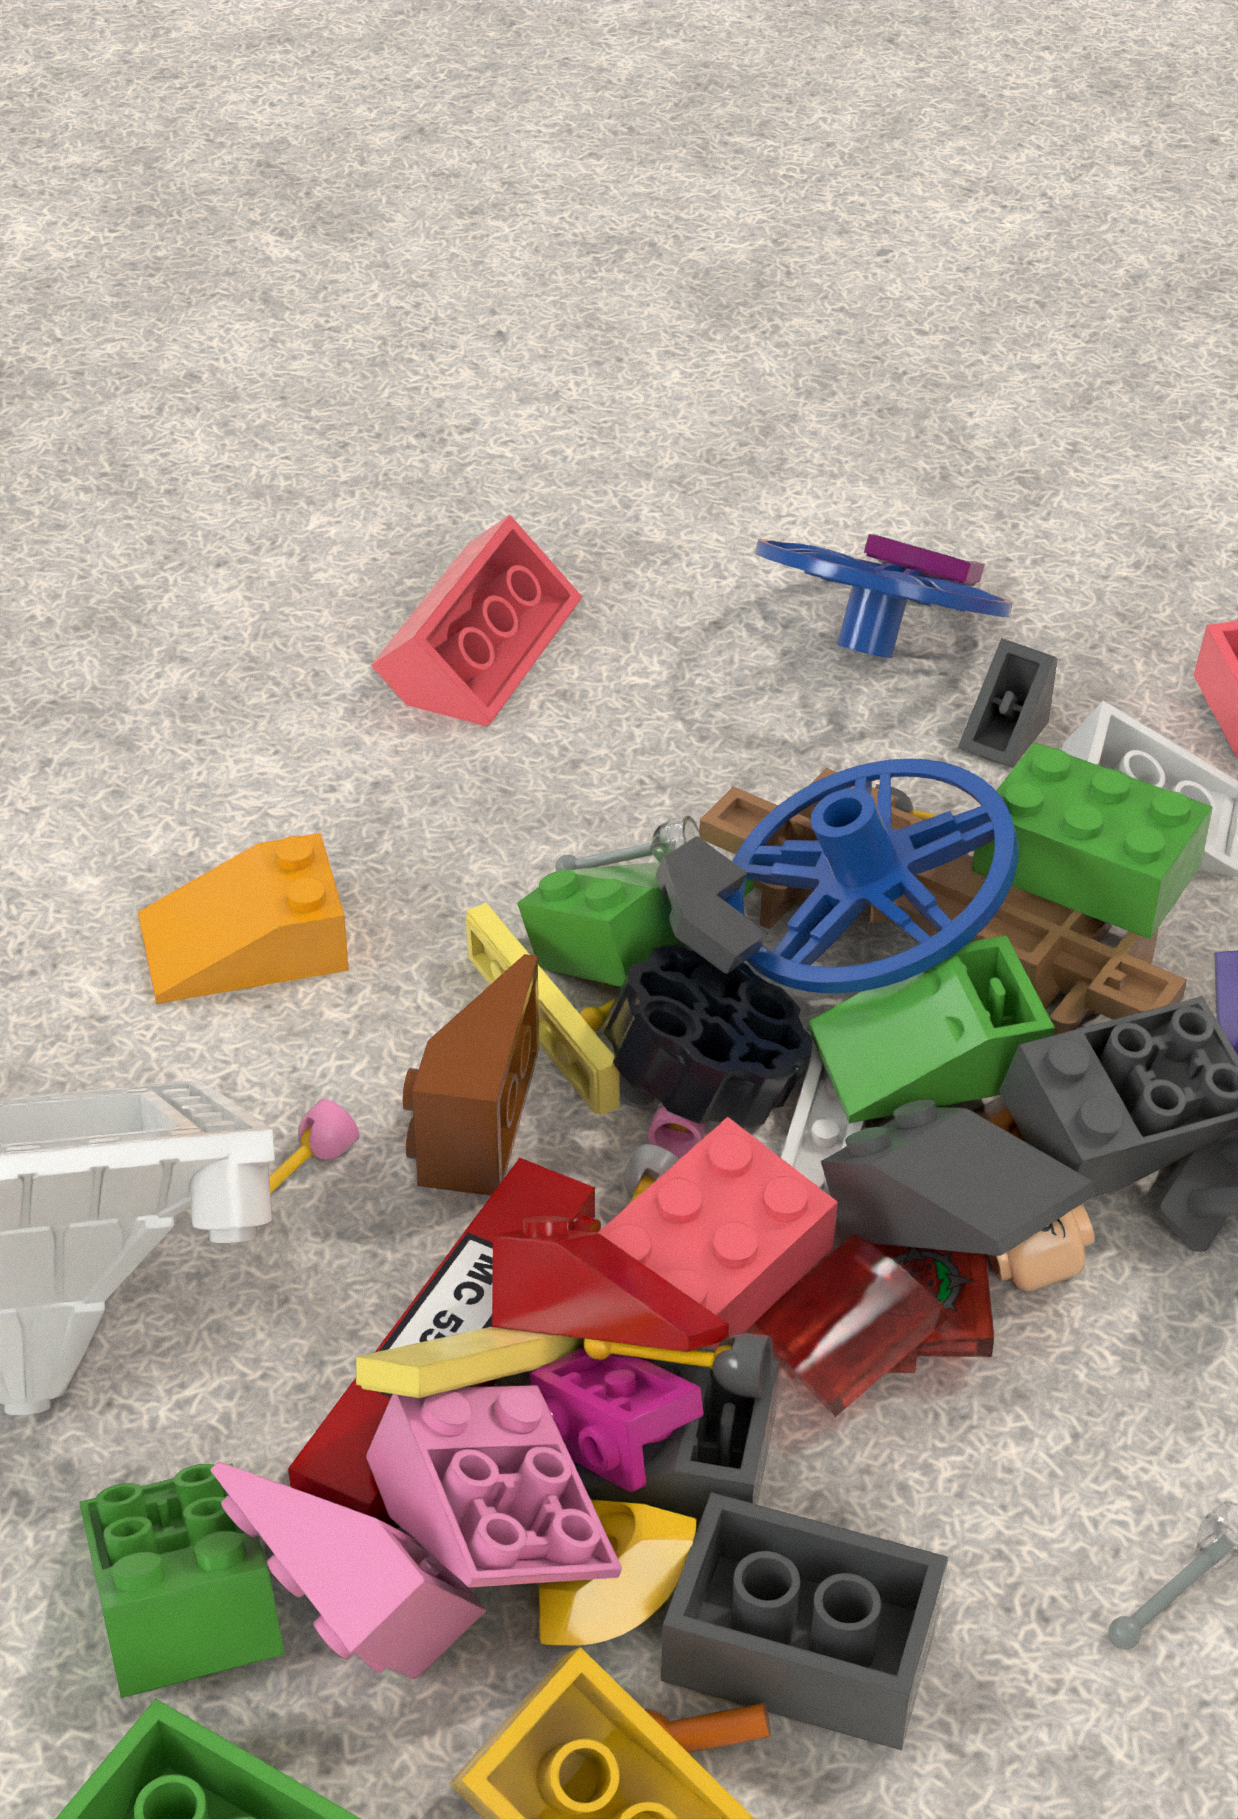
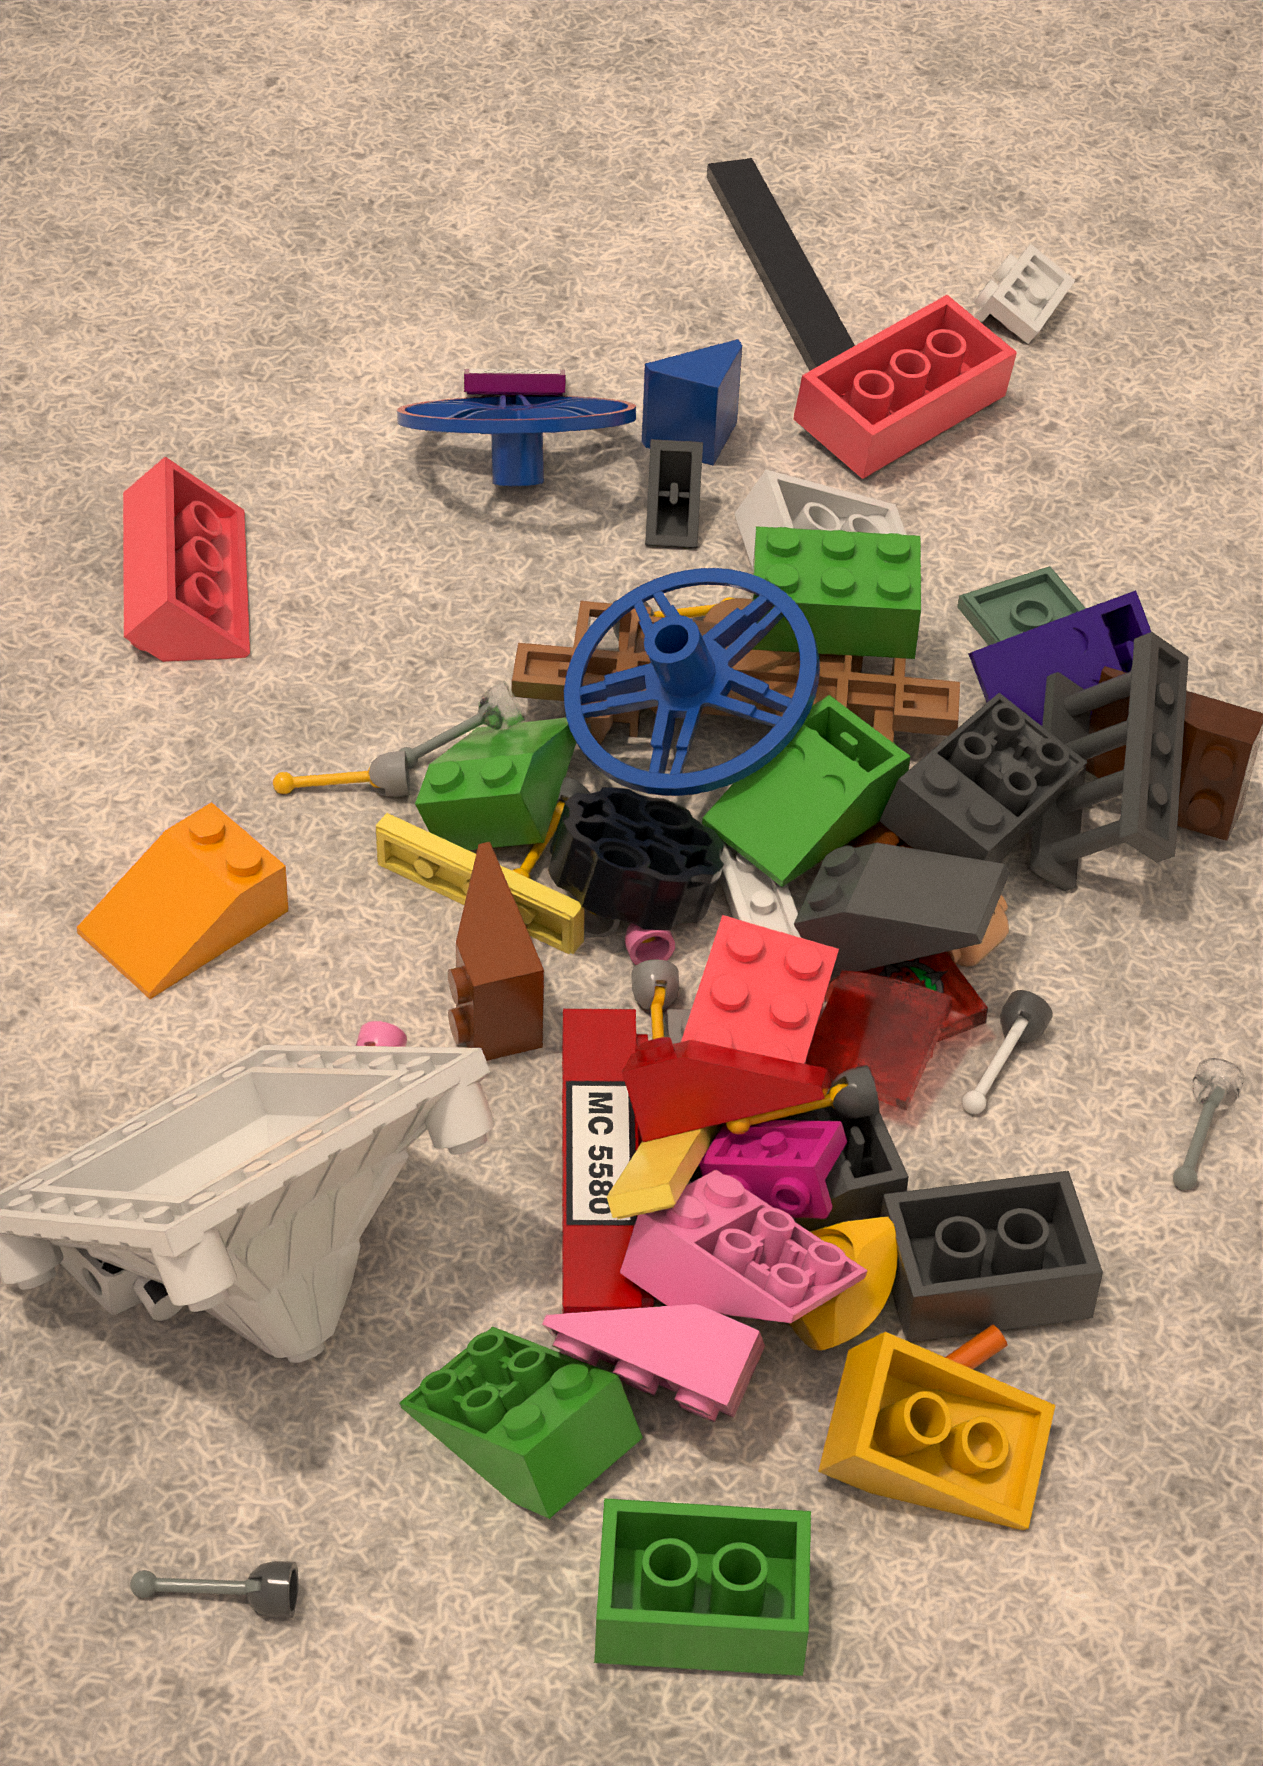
camera: 30 degrees left, 5 degrees up
(525, 871) = (386, 774): none -> hinge
(697, 884) = (588, 764): dark grey tile -> none
(1037, 1370) = (1022, 1021): none -> hinge
(1088, 620) = (693, 397): none -> blue slope

